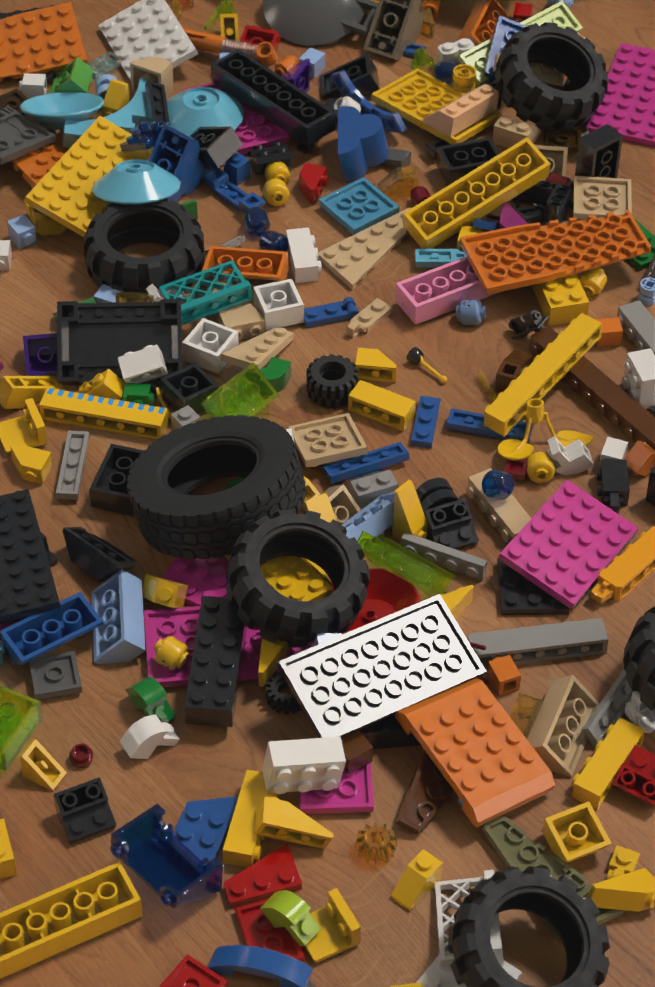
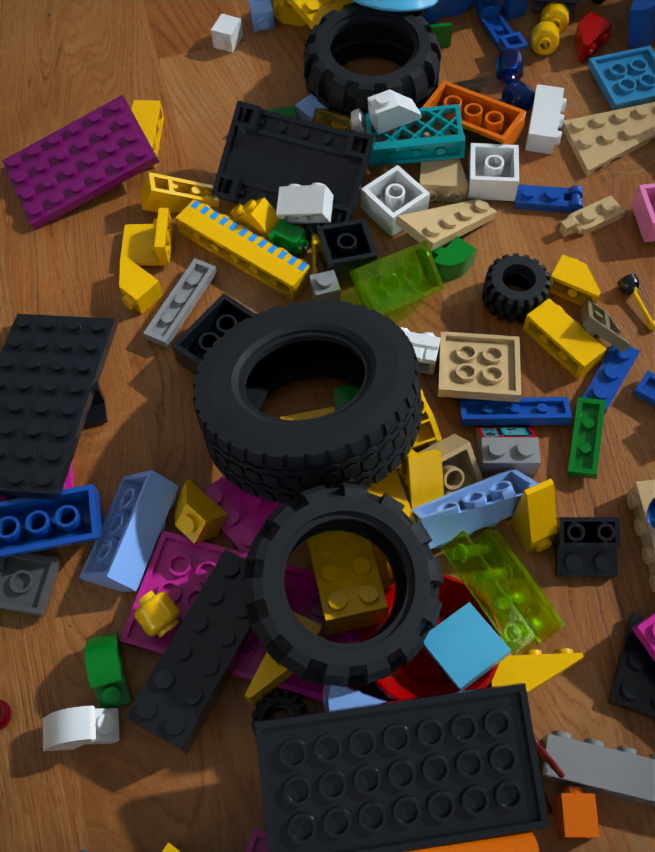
camera: 25 degrees right, 15 degrees up
(41, 354) = (206, 155): slope -> none
(95, 554) = (147, 432): black wedge -> none
(181, 279) = (391, 110): none -> white slope
(392, 595) = (465, 646): none -> medium azure tile
(402, 386) = (599, 322): none -> dark tan wing
(423, 458) = (586, 438): none -> green plate
(435, 493) = (582, 497): black wheel -> none
(445, 556) = (568, 593): light grey plate -> none

